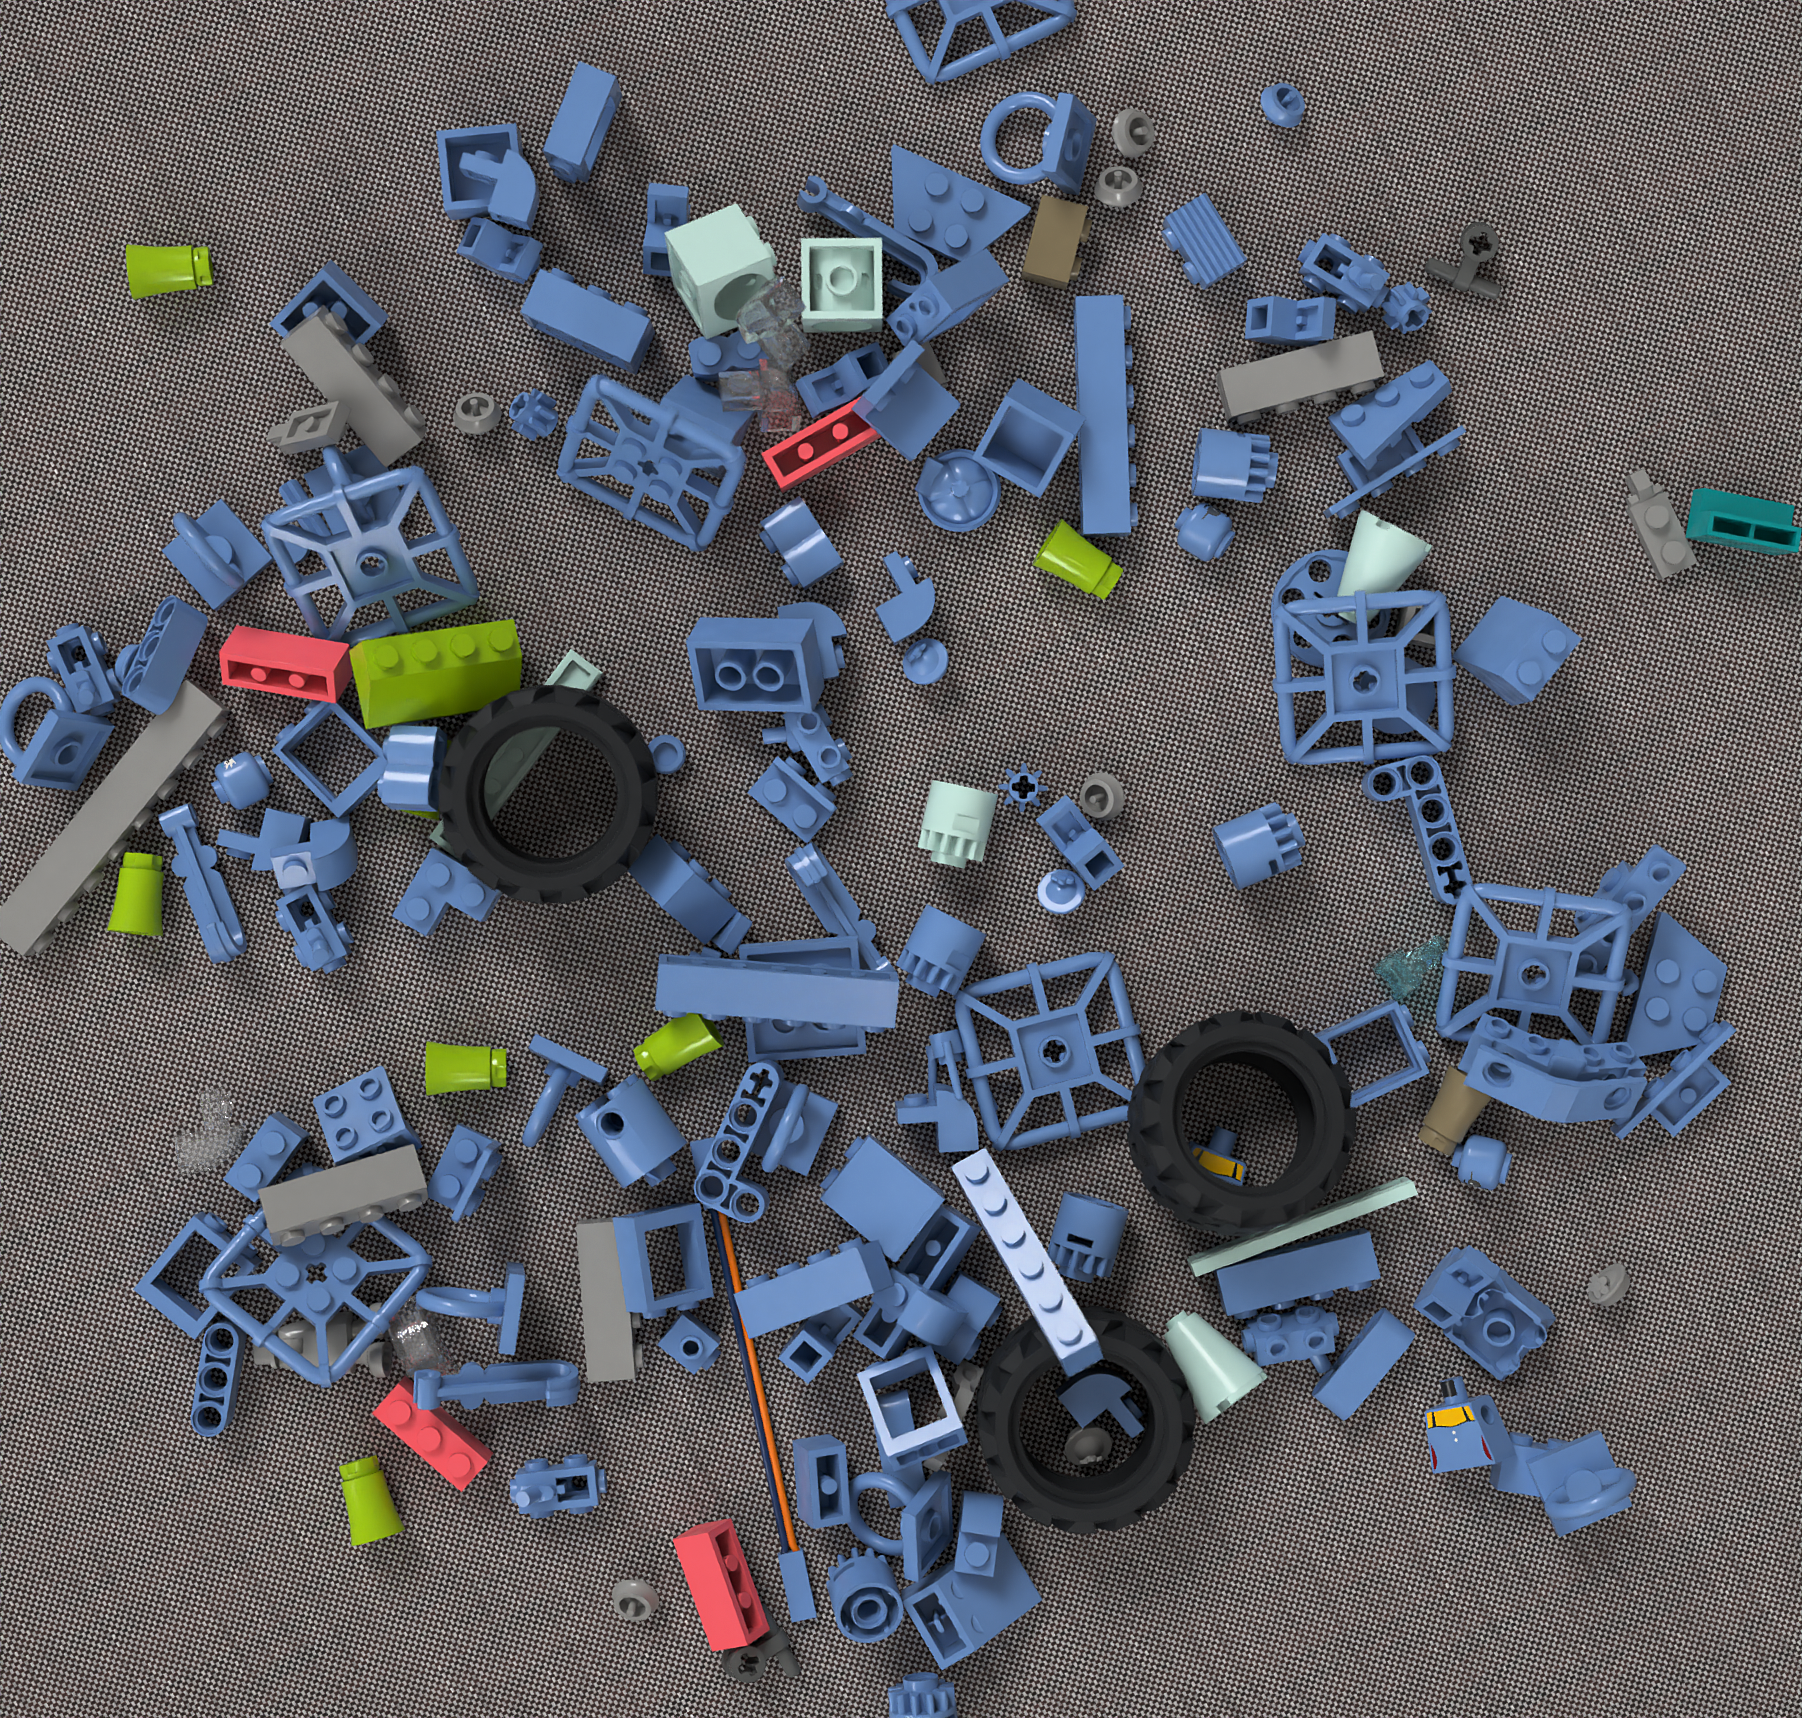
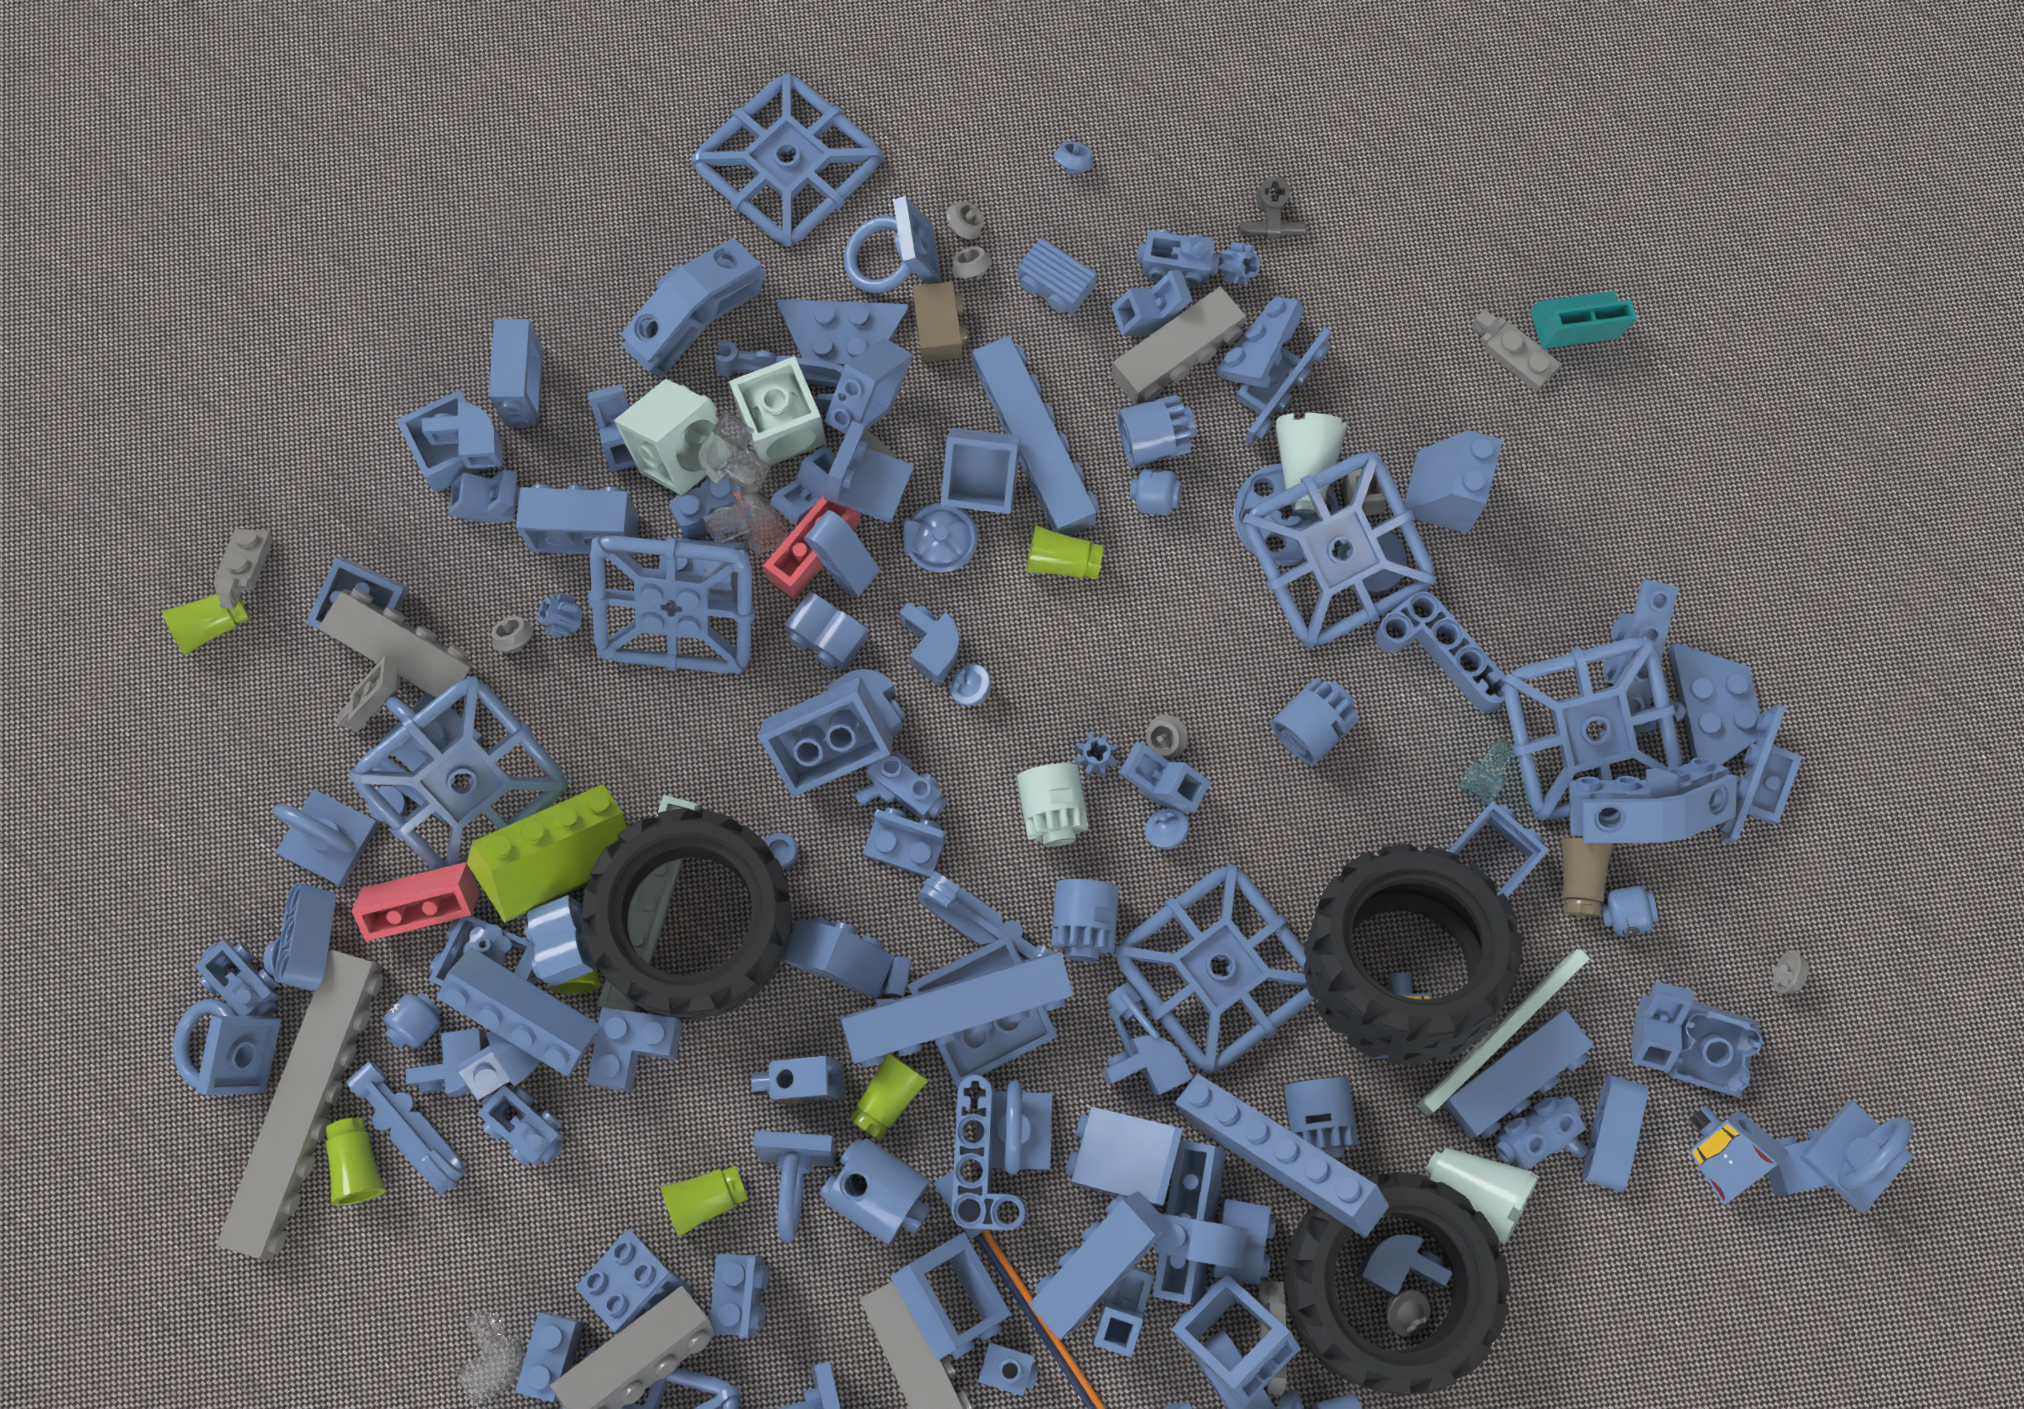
camera: 25 degrees left, 15 degrees down
(223, 224) = (241, 564): none -> light grey hinge
(349, 823) = (518, 1011): none -> medium blue brick
(350, 744) = (496, 945): none -> medium blue plant
(611, 1000) = (814, 1080): none -> medium blue torso
(797, 117) = (690, 300): none -> medium blue brick
(848, 473) = (842, 553): none -> medium blue beam

